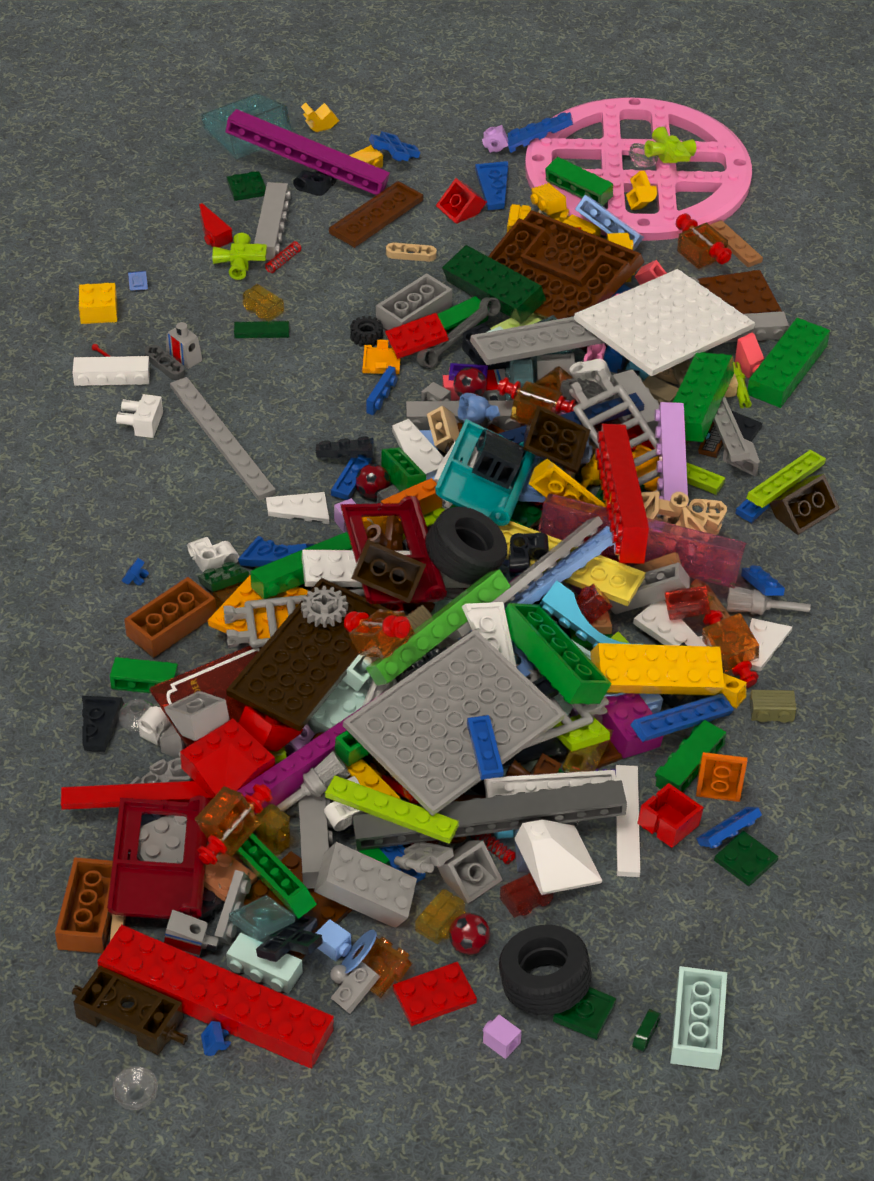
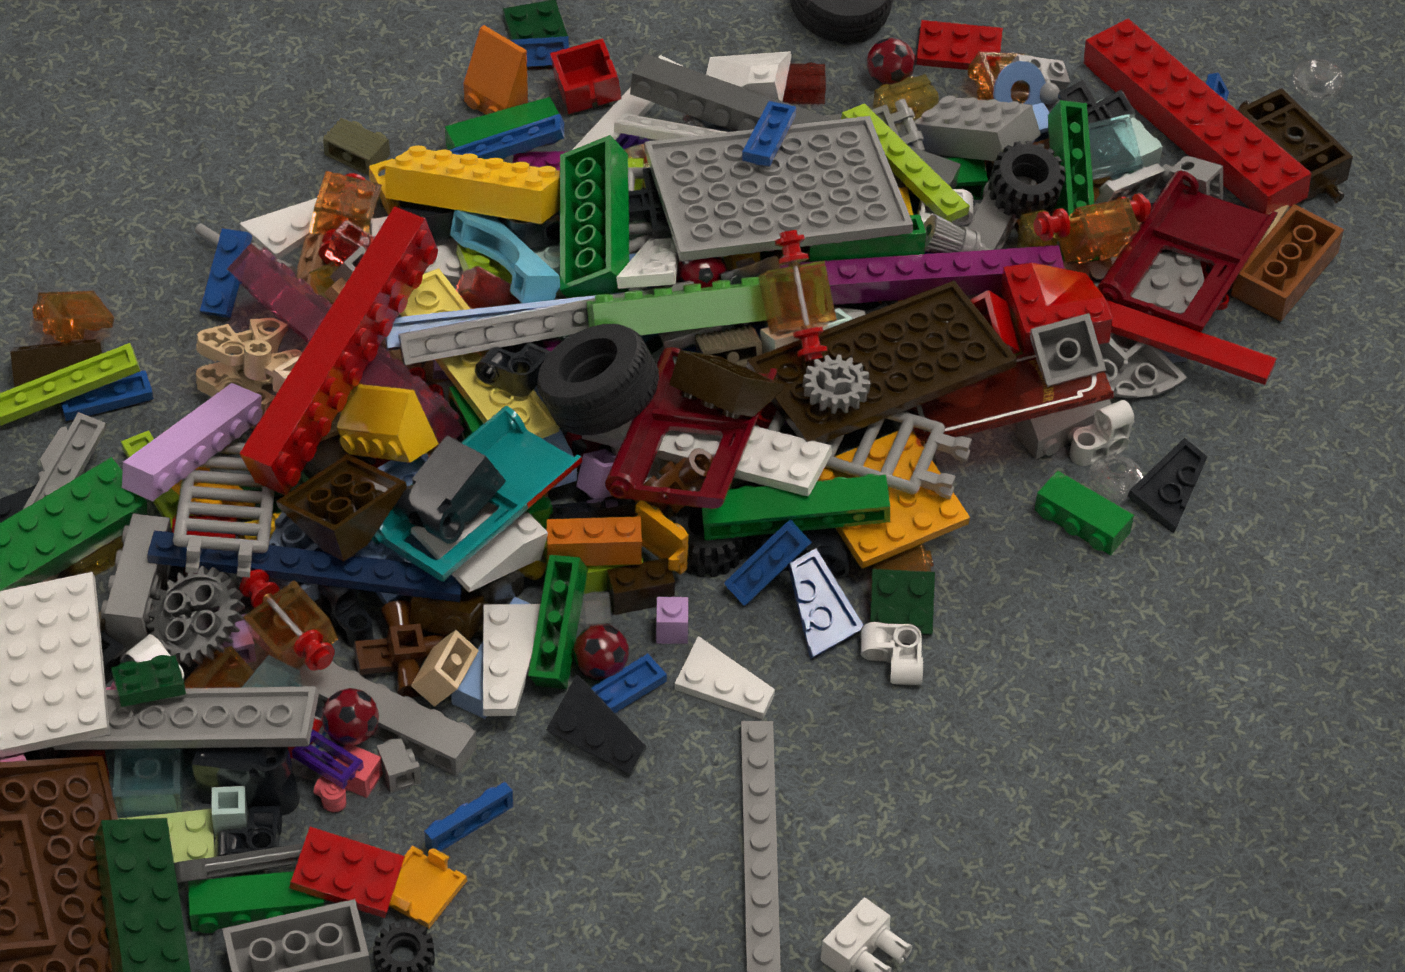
camera: 150 degrees left, 5 degrees up
(135, 572) = (1019, 673): blue tile -> none
(170, 617) = (1008, 570): dark orange brick -> none
(299, 837) = (1030, 162): none -> black tyre
(476, 408) = (377, 663): medium blue piece -> none
(577, 343) = (148, 680): none -> dark green plate
(823, 526) = (70, 313): none -> clear orange plate

